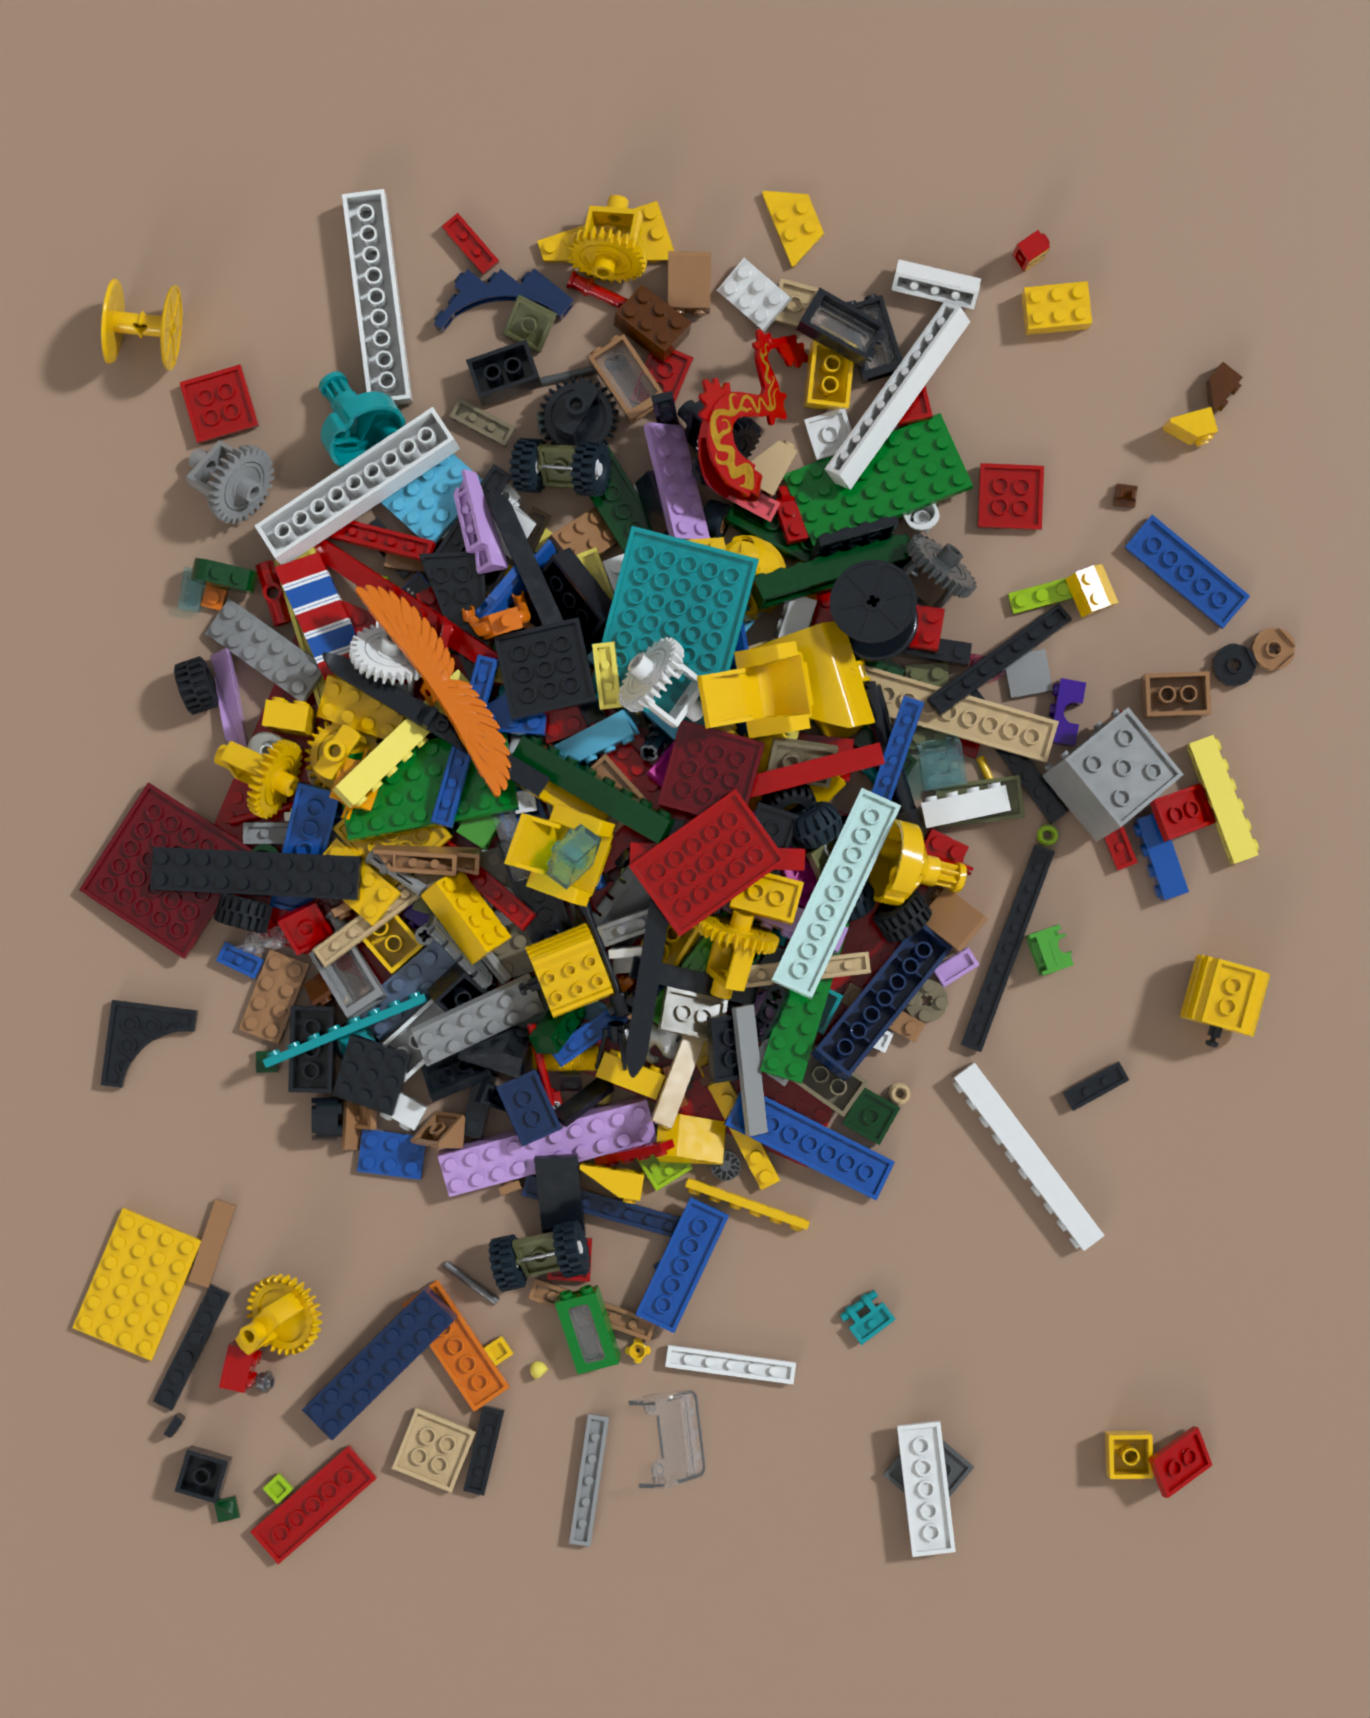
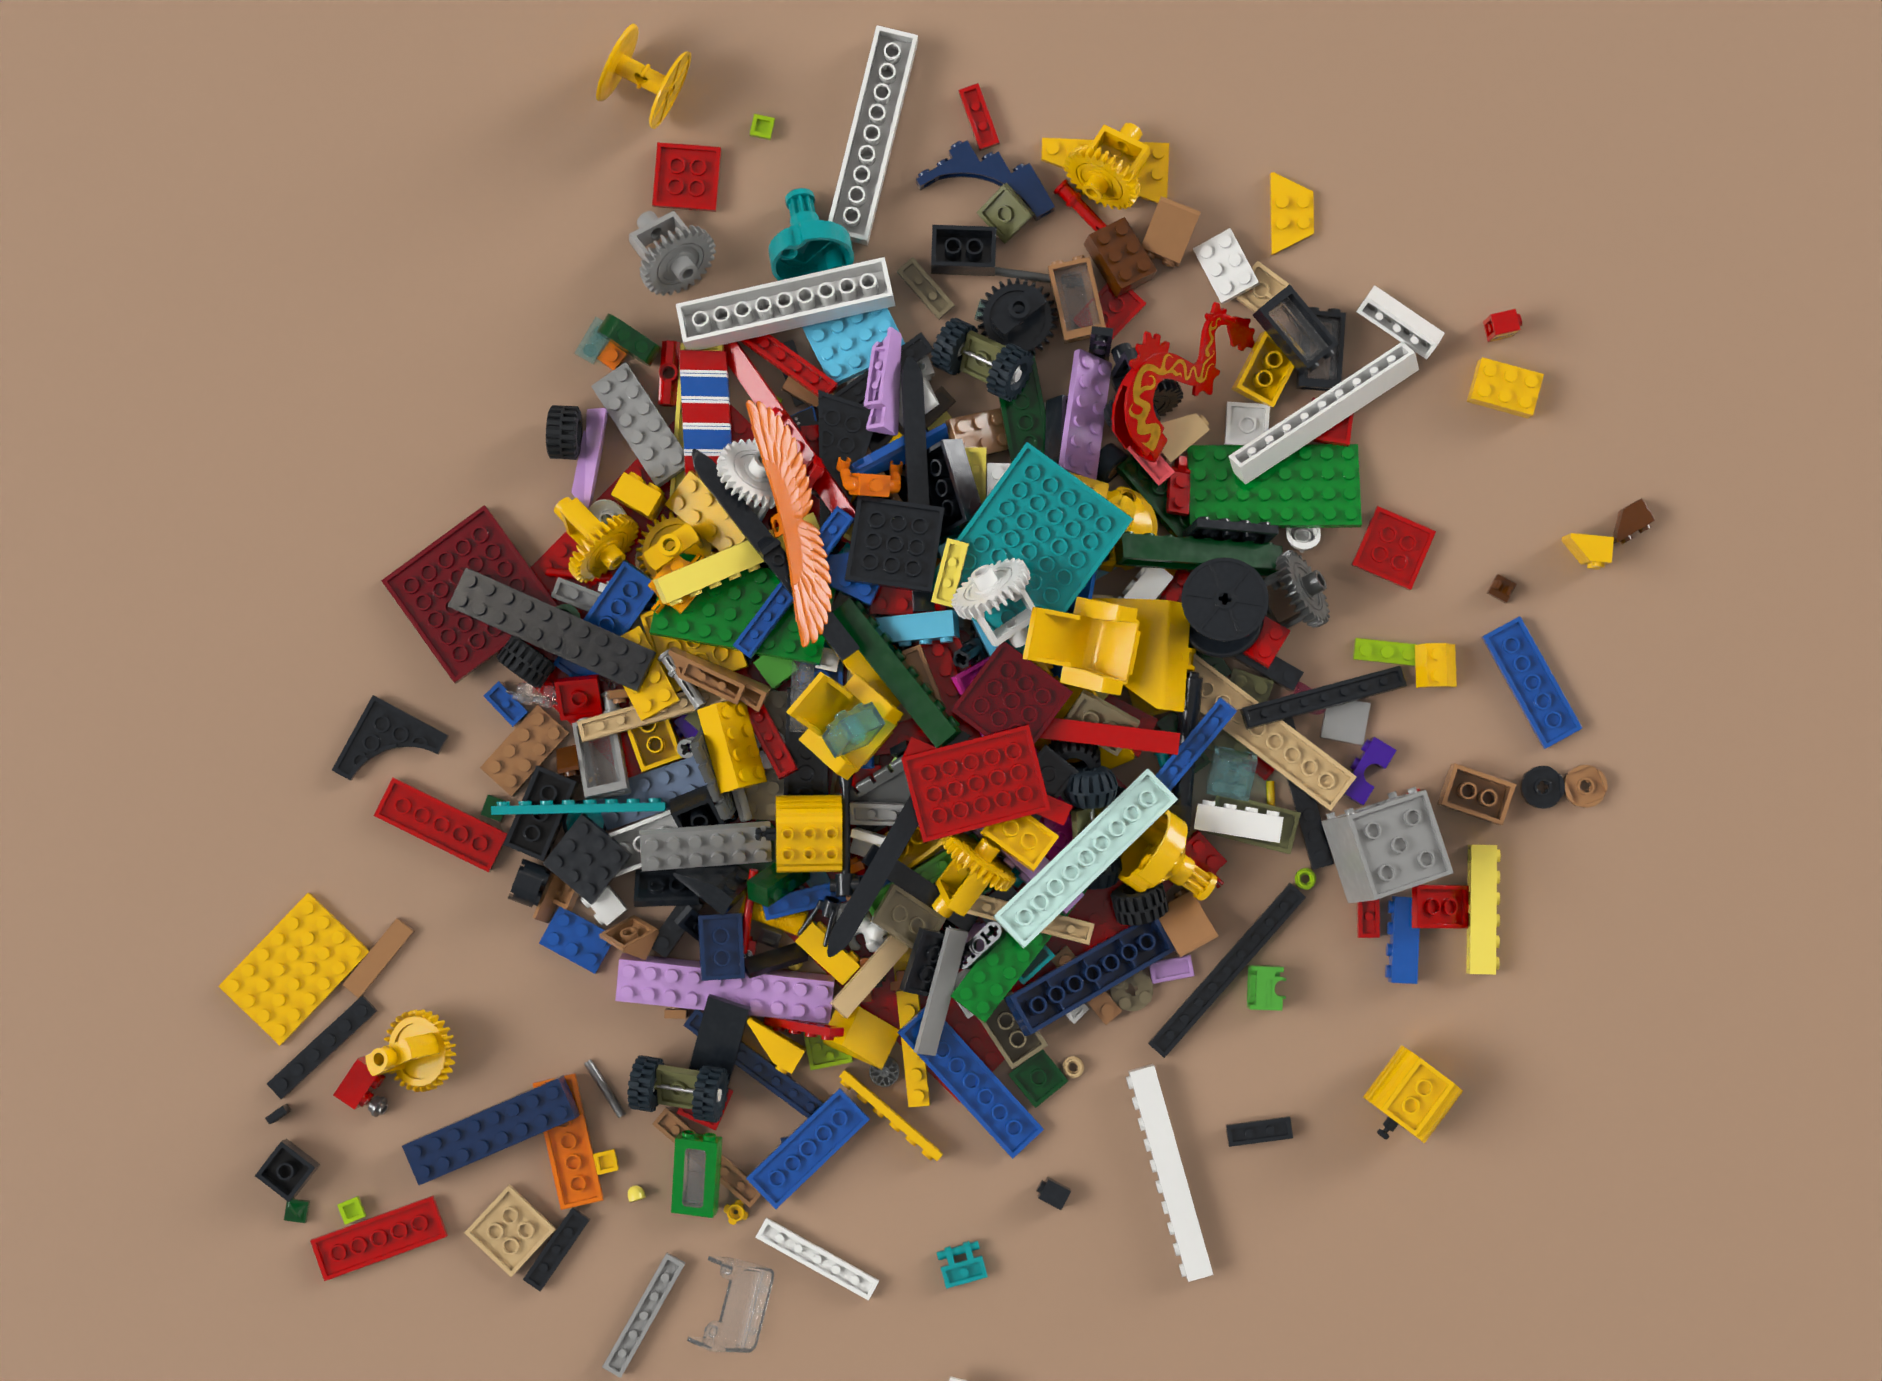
camera: 20 degrees right, 0 degrees up
(222, 1096) = (441, 824): none -> red plate
(271, 330) = (762, 127): none -> lime plate
(926, 1217) = (1053, 1193): none -> black brick

